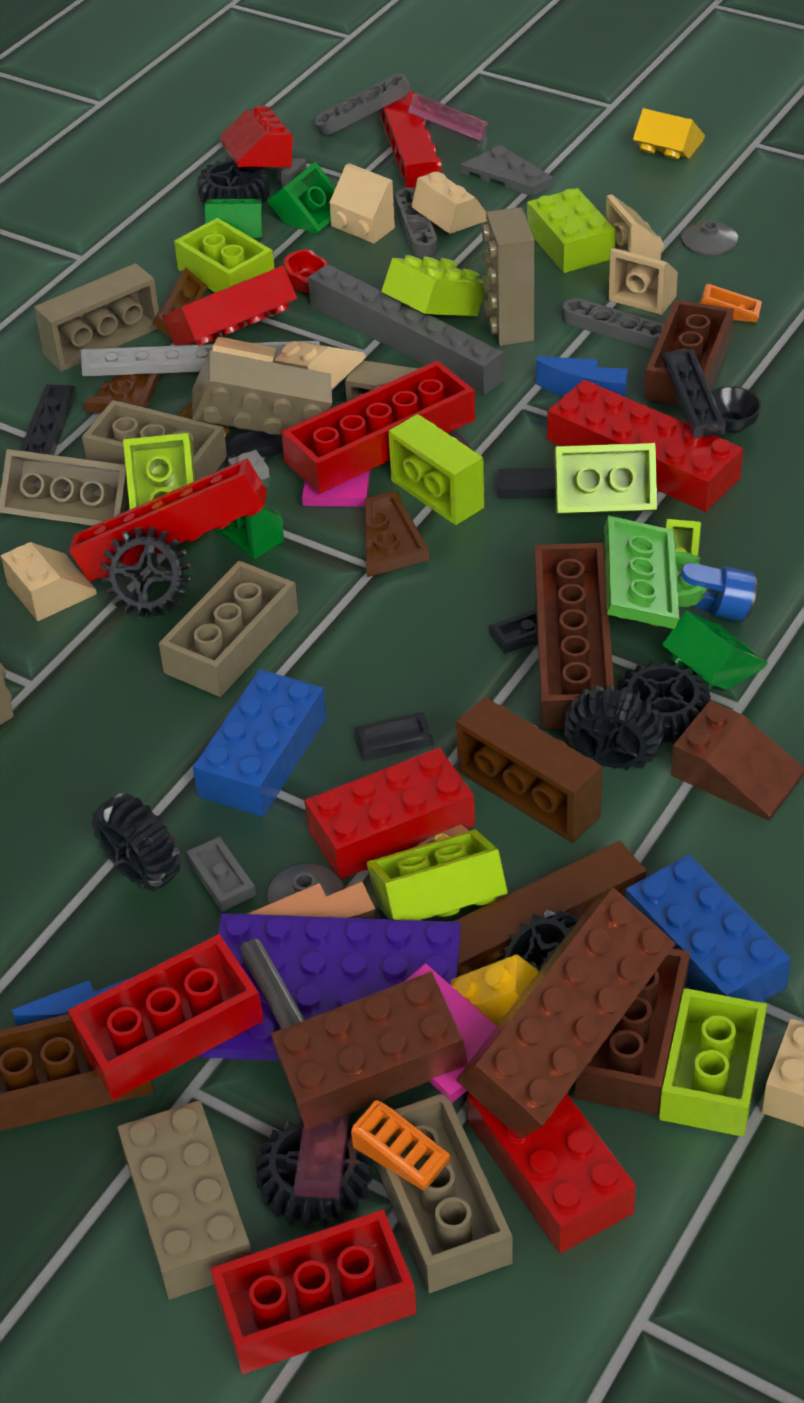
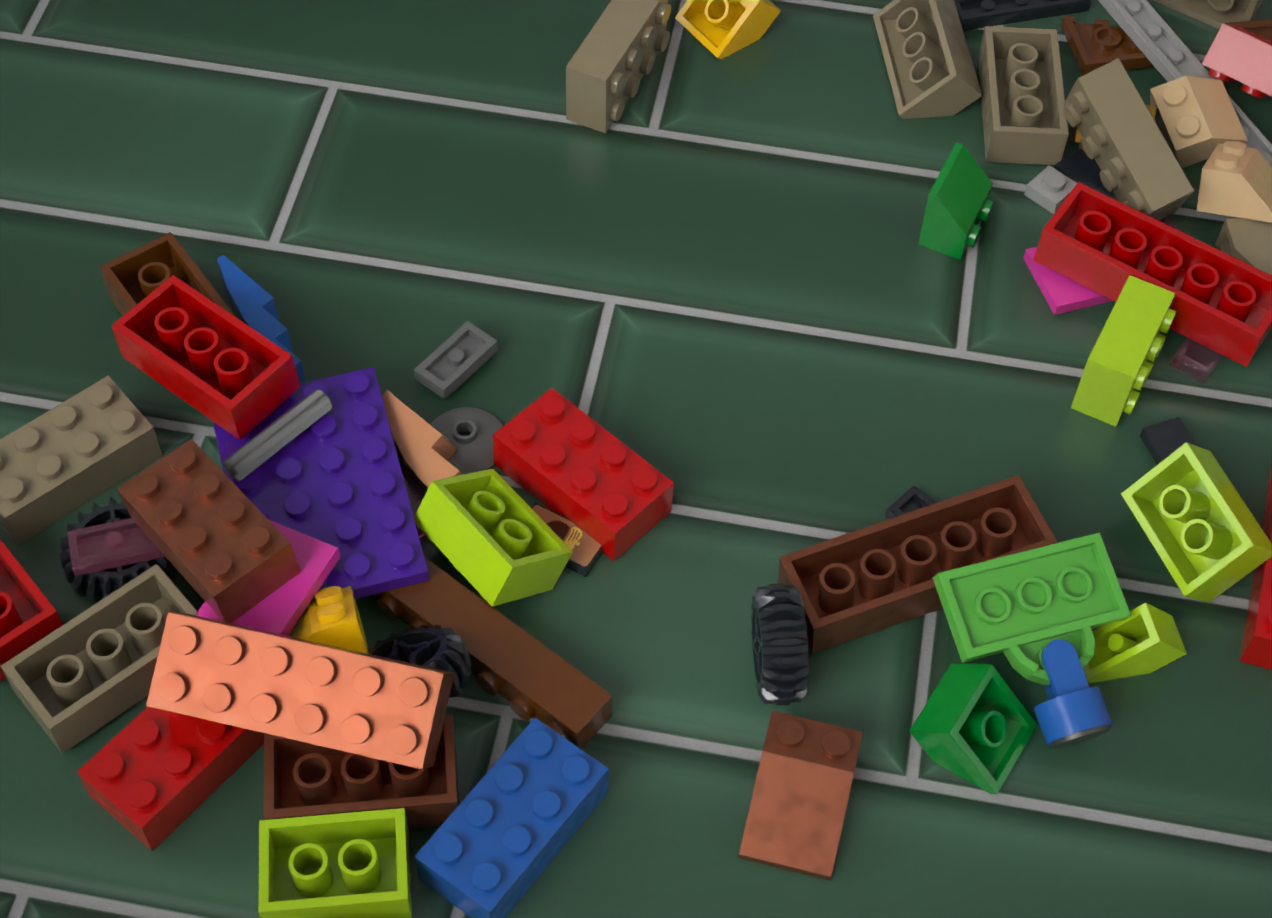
camera: 65 degrees right, 10 degrees up
(44, 579) = (788, 83): tan slope -> none
(136, 841) = (451, 273): black gear -> none
(143, 586) = (814, 141): black gear -> none
(157, 466) = (940, 108): lime brick -> none
(182, 512) = (884, 137): red brick -> none
(229, 628) = (780, 250): dark tan brick -> none
(260, 742) = (637, 332): blue brick -> none
(388, 1123) = (127, 569): orange slope -> none
(391, 535) = (1010, 350): reddish brown wing -> none
(393, 736) = (707, 448): black tile -> none
(529, 769) = (683, 578): reddish brown brick -> none
(672, 691) = (844, 669): black gear -> none

